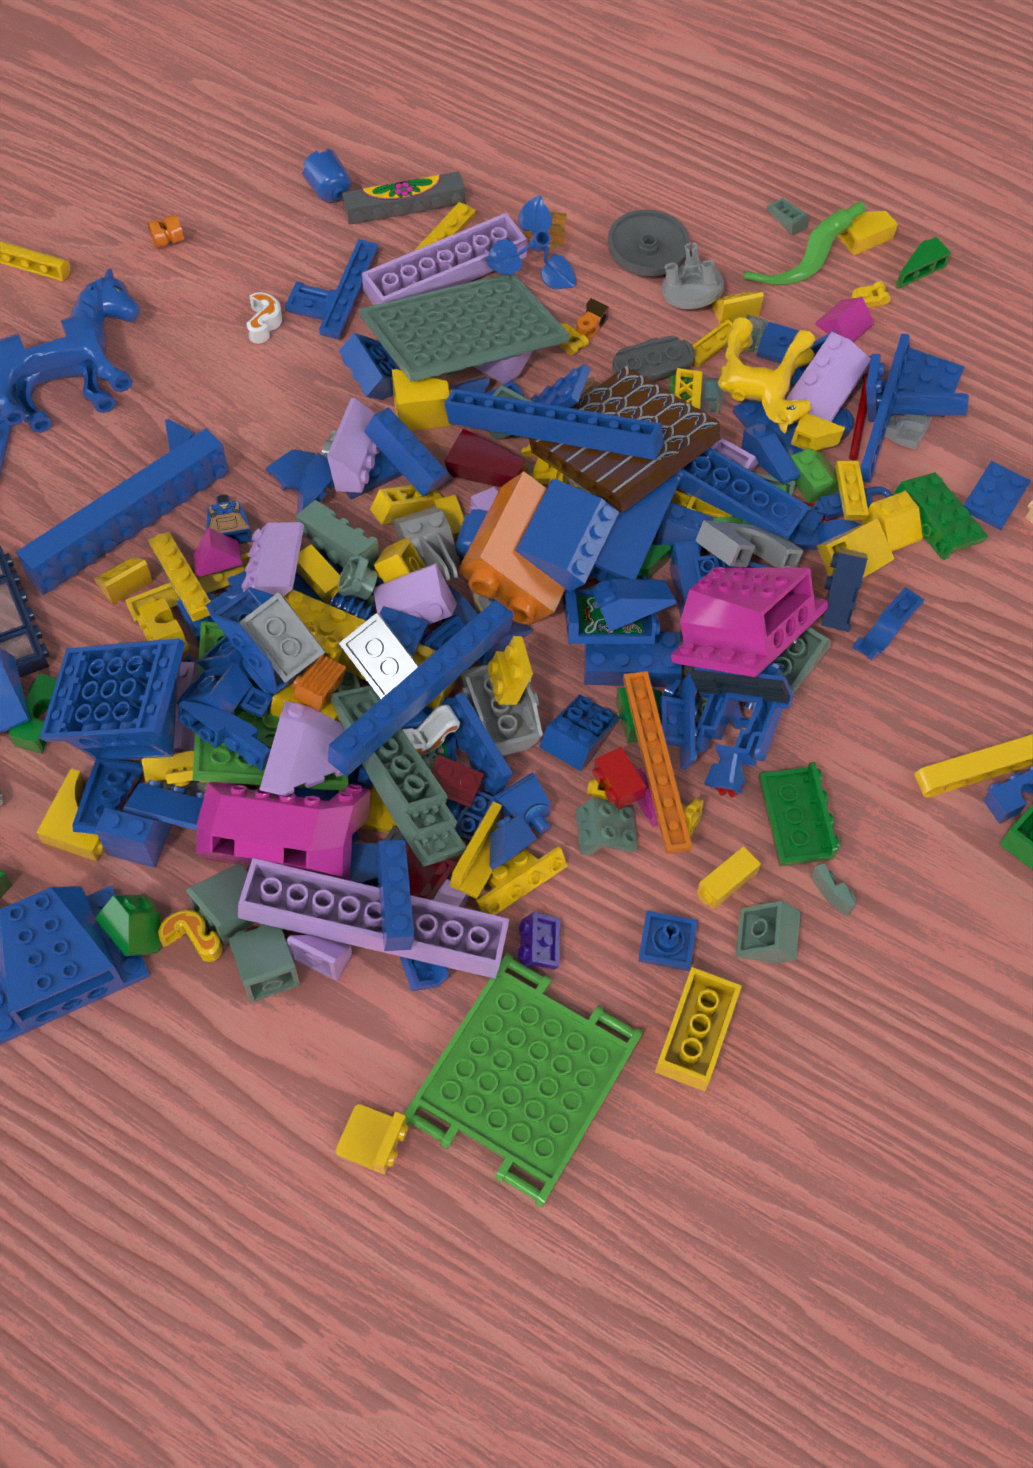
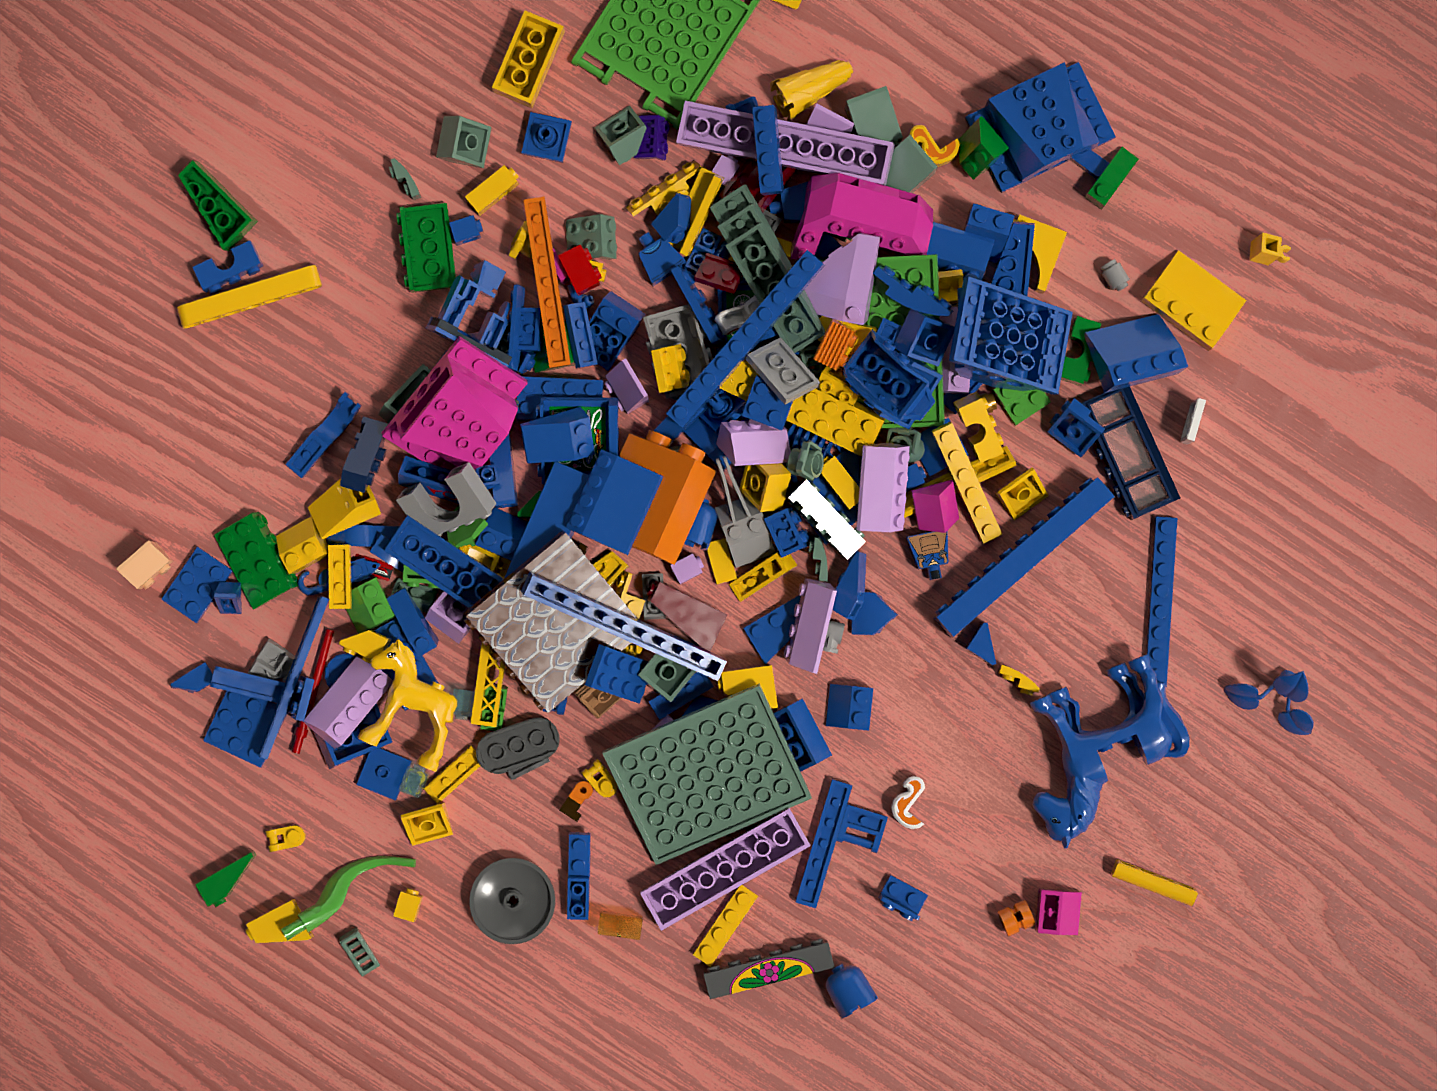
camera: 175 degrees left, 25 degrees up
(52, 630) = (1075, 427): none -> blue plate
(126, 234) = (1058, 912): none -> dark pink slope
(147, 418) = (1027, 685): none -> yellow slope
(277, 242) = (902, 897): none -> blue bracket
(282, 637) = (867, 371): light grey plate -> none
(318, 391) = (849, 707): none -> blue slope
(345, 509) = (817, 548): none -> sand green slope
(348, 997) = (808, 86): none -> yellow cone
(380, 522) = (787, 531): none -> blue bracket
(406, 452) = (759, 620): blue slope -> none
(504, 256) = (610, 864): blue plant -> none
(555, 667) = (626, 387): none -> lavender slope
(576, 943) = (622, 134): none -> sand green slope
(586, 262) = (578, 876): none -> blue slope
(614, 714) = (580, 335): none -> blue plate
(693, 283) = (469, 843): light grey piece -> none
(746, 243) = (408, 905): none -> yellow brick
(755, 833) = (466, 230): none -> blue brick
(847, 318) = (316, 803): dark pink slope -> none
(964, 476) = (228, 598): none -> blue slope
(981, 414) = (194, 680): none -> blue slope

